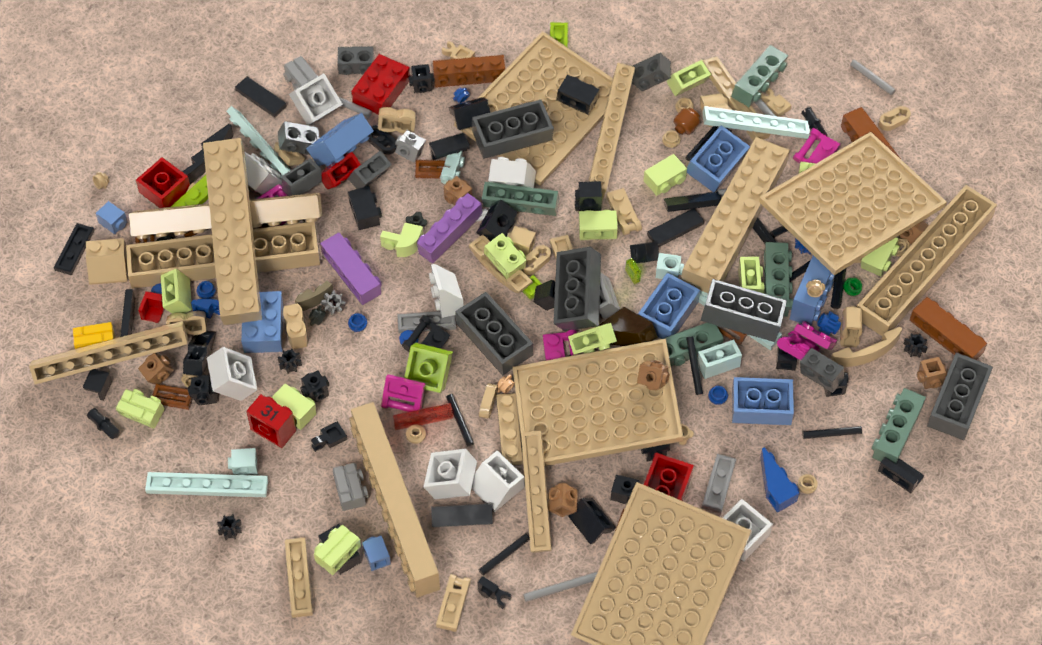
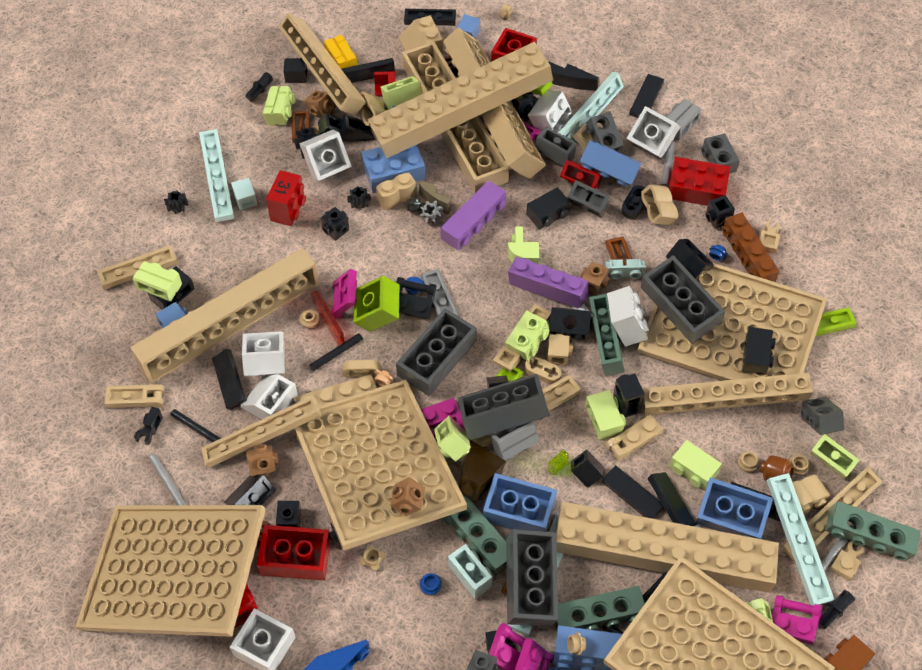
camera: 75 degrees right, 0 degrees up
(302, 407) = (308, 212): yellowish green brick -> none
(330, 435) = (284, 249): black plate -> none
(349, 486) = (234, 275): light grey brick -> none
(357, 322) = (419, 239): blue plate -> none
(409, 146) = (634, 224): light grey brick -> none
(417, 216) = (551, 260): pearl dark grey plate -> none
(445, 291) = (470, 295): white slope -> none
(448, 145) = (644, 254): black panel -> none
(666, 261) = (575, 488): light aqua brick -> none
(694, 365) = (452, 548): black bar -> none
(719, 483) = (323, 609): light grey tile -> none
(750, 274) = (586, 580): yellowish green brick -> none
(762, 401) = (429, 628): medium blue brick -> none

